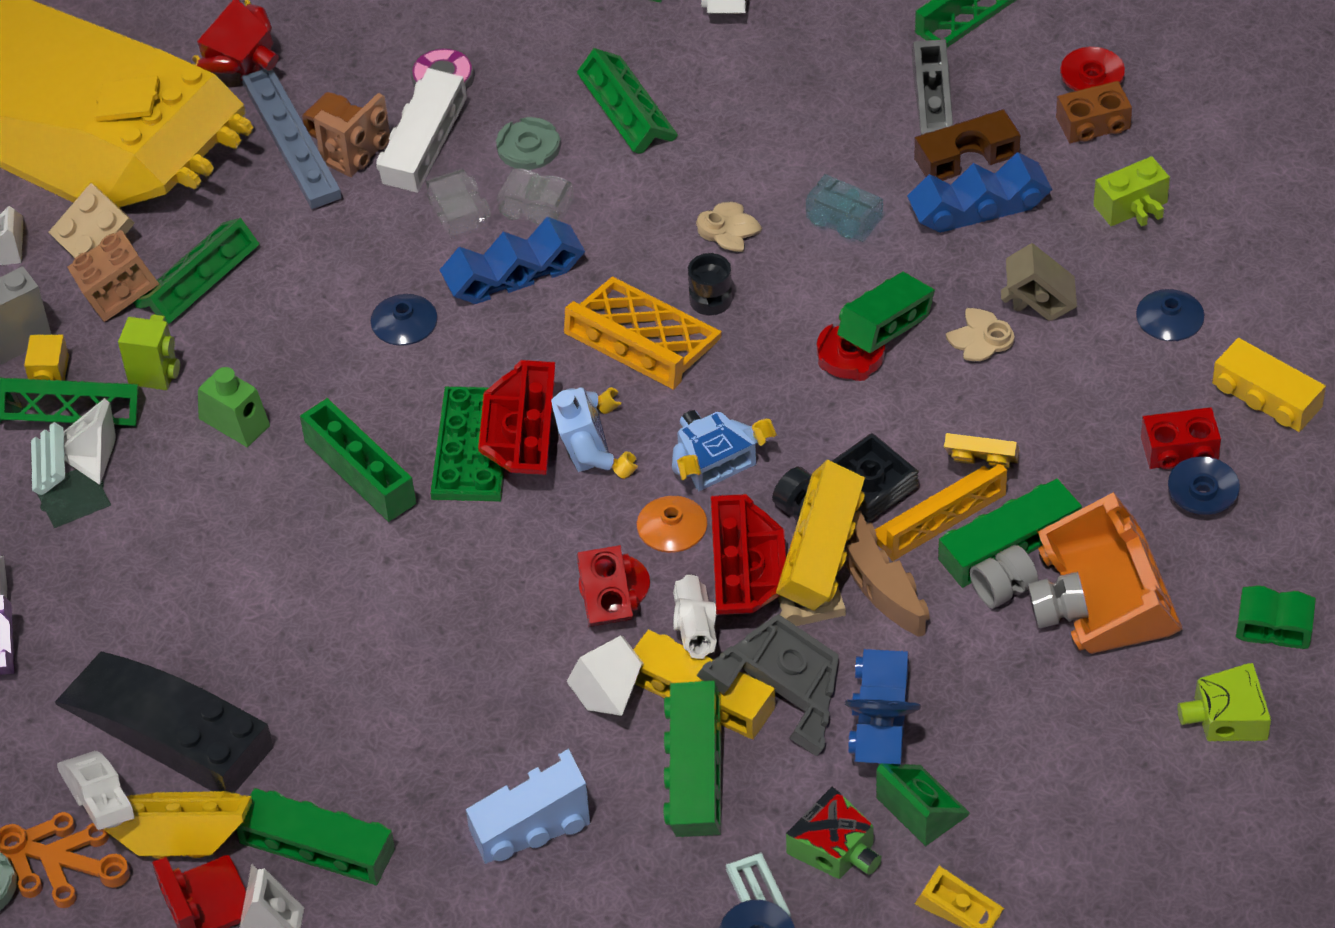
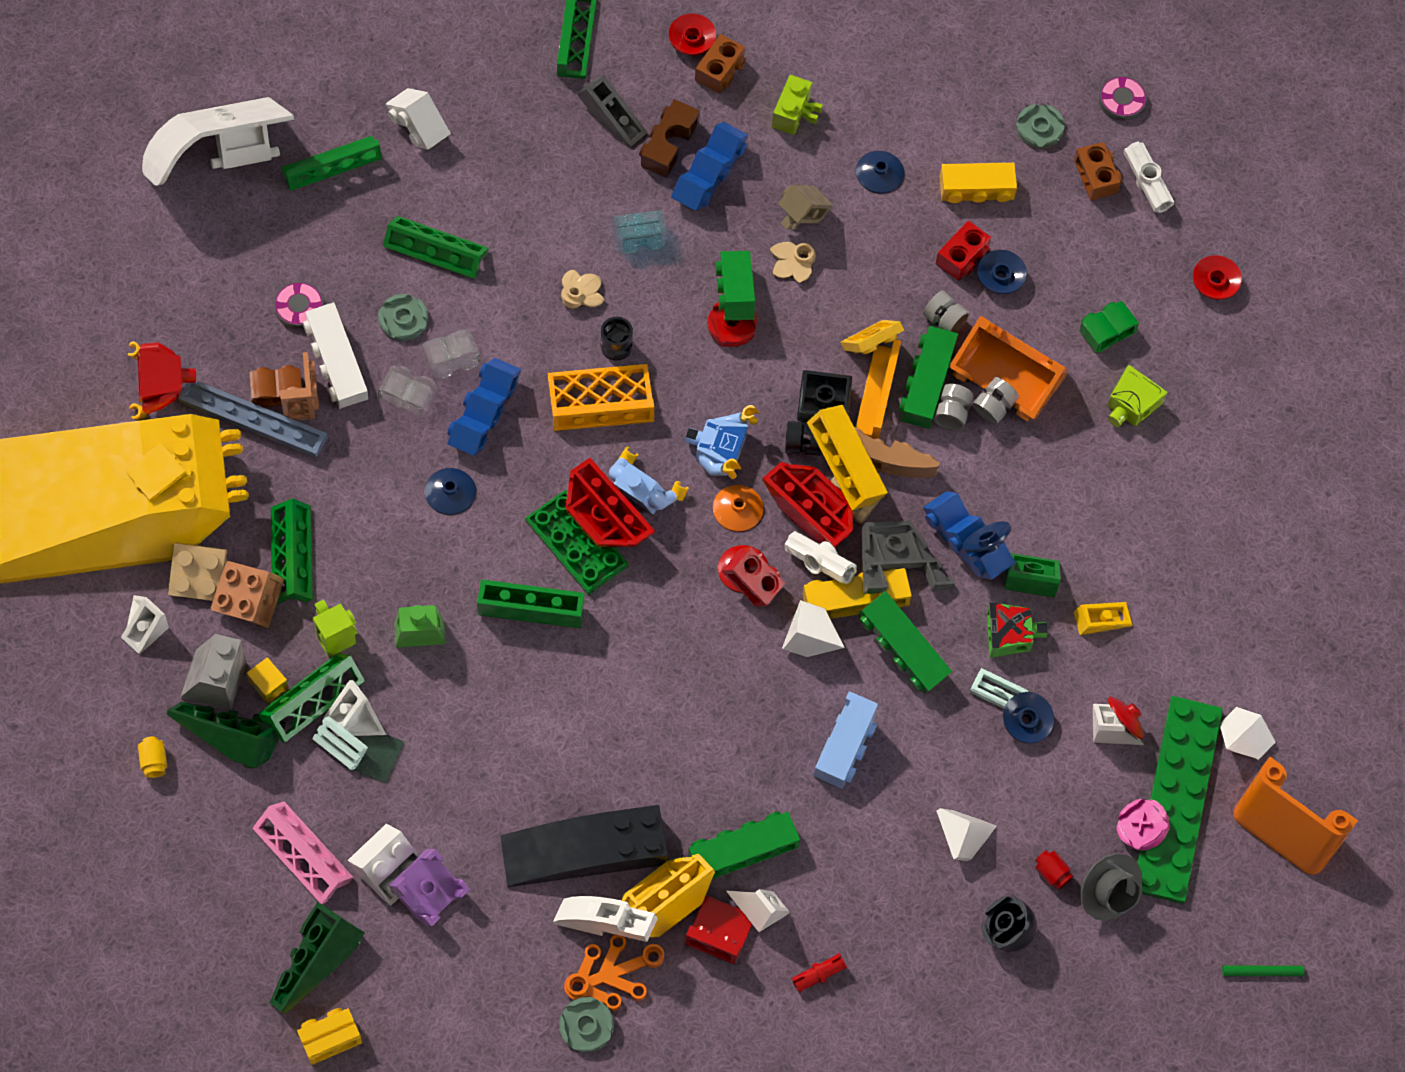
camera: 50 degrees left, 15 degrees up
(1092, 476) = (952, 319): none -> light grey wheel

